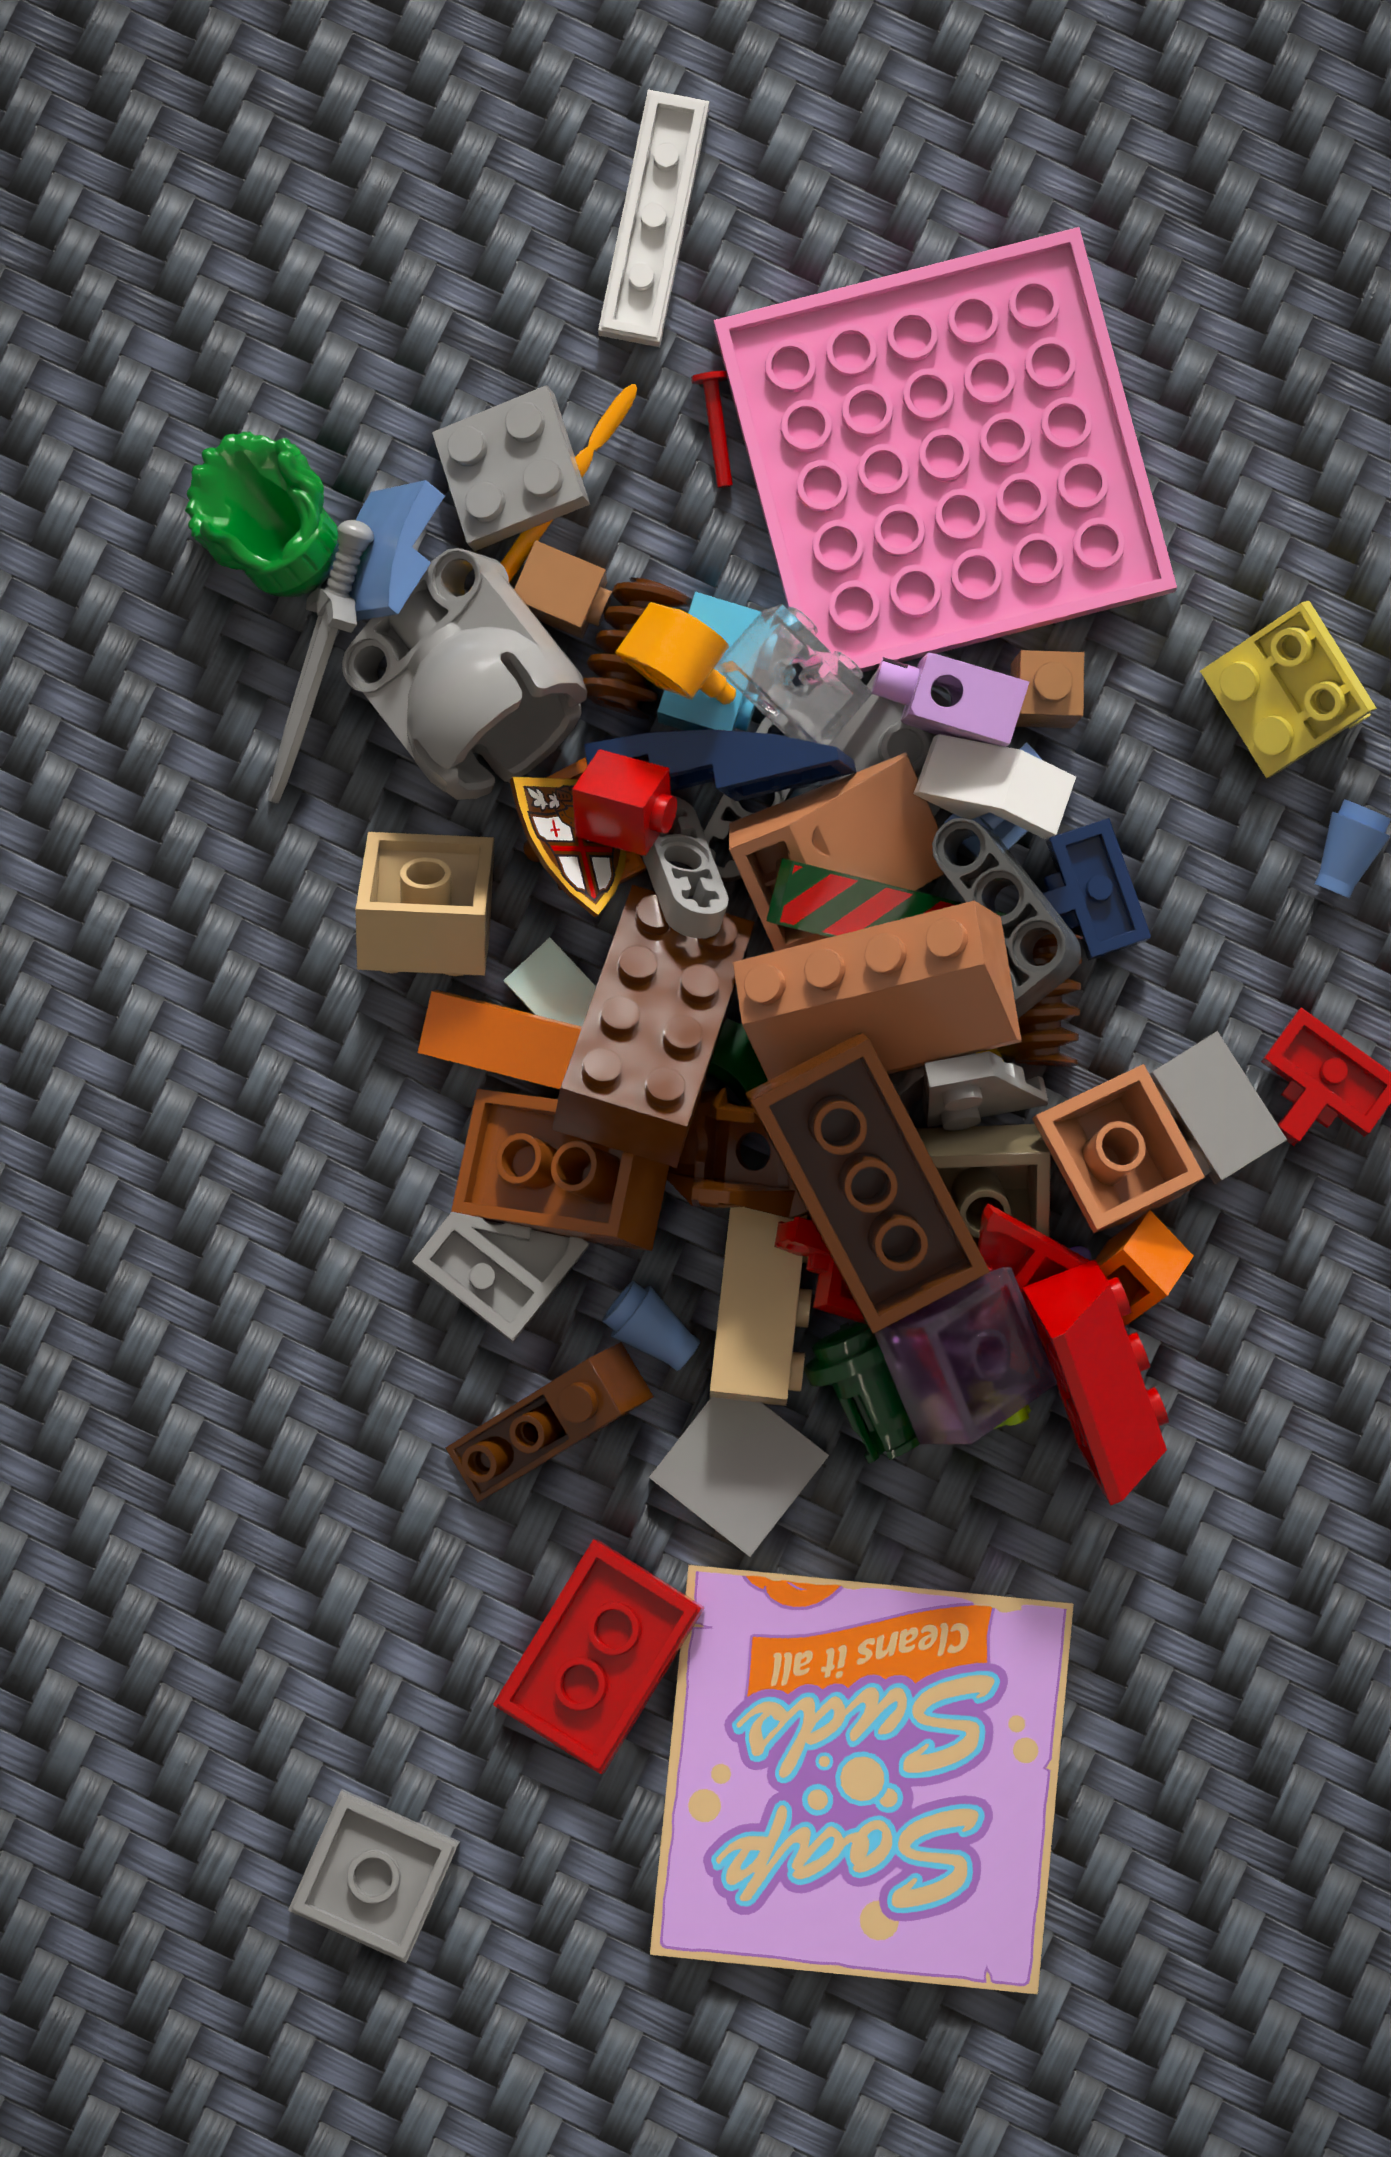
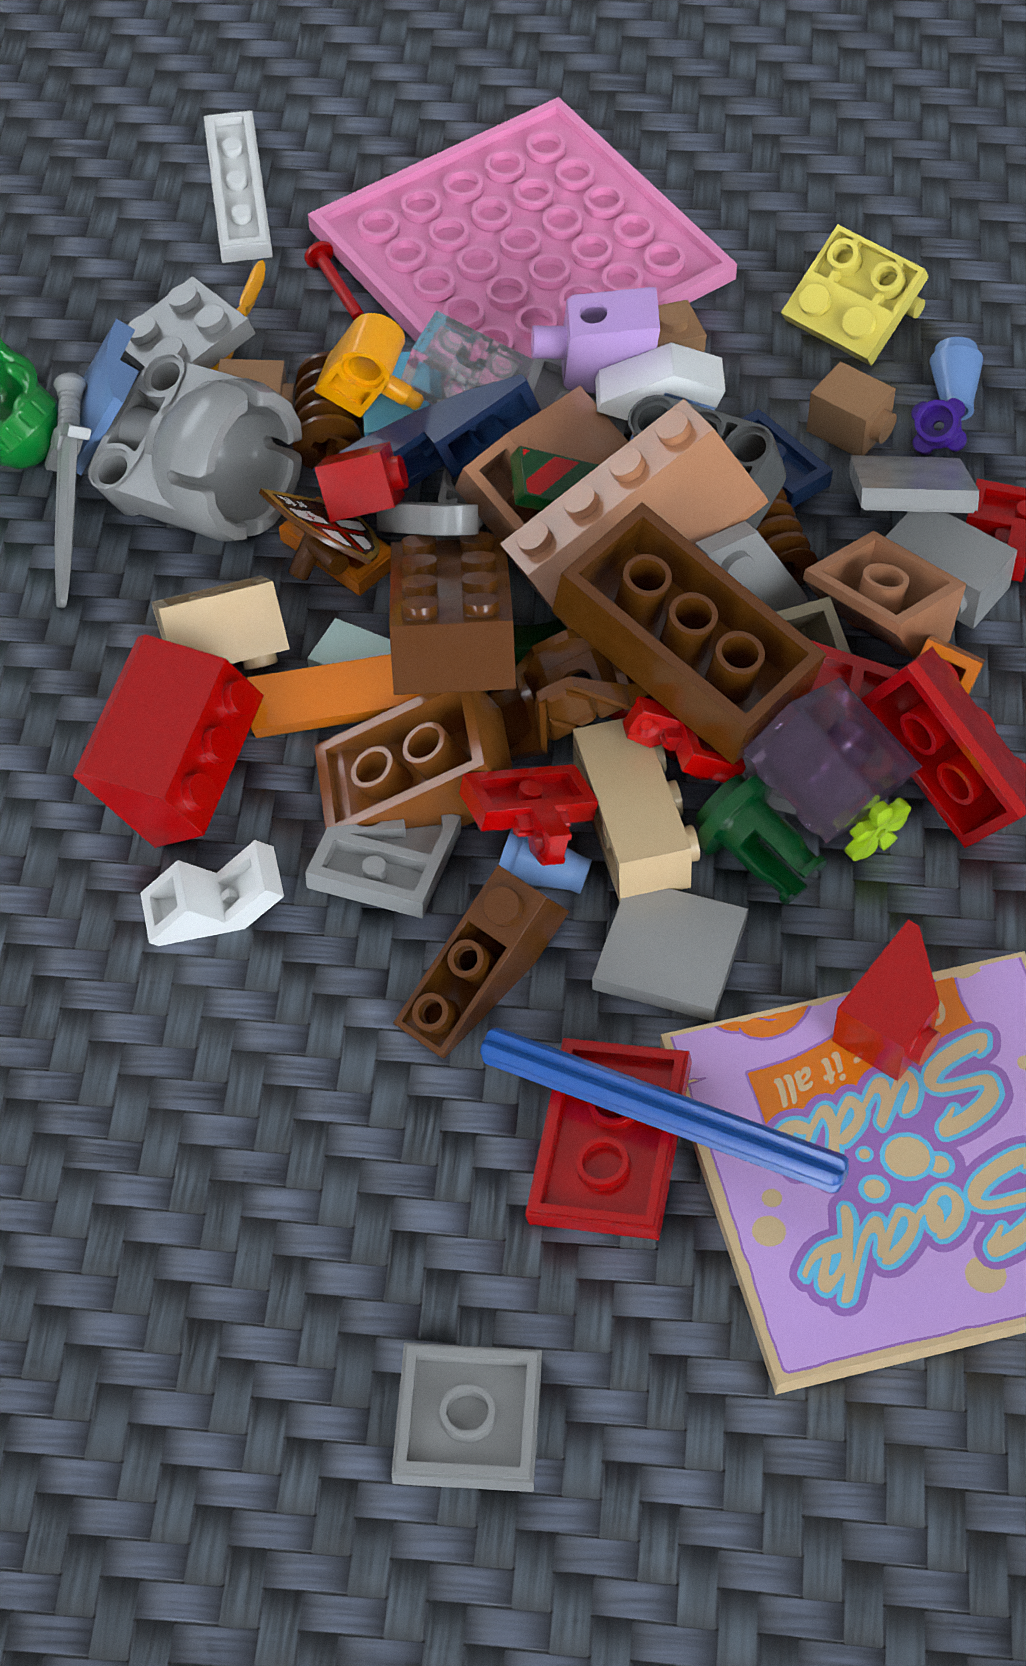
camera: 25 degrees left, 30 degrees down
(315, 1245) = (201, 903): none -> white slope
(324, 1061) = (168, 739): none -> red slope
(648, 1667) = (666, 1110): none -> blue axle
(652, 1286) = (533, 804): none -> red hinge
(911, 1636) = (892, 1008): none -> red slope
(1212, 856) = (851, 410): none -> medium nougat brick
(1217, 1007) = (913, 484): none -> light grey tile
(1282, 914) = (928, 414): none -> dark purple plate

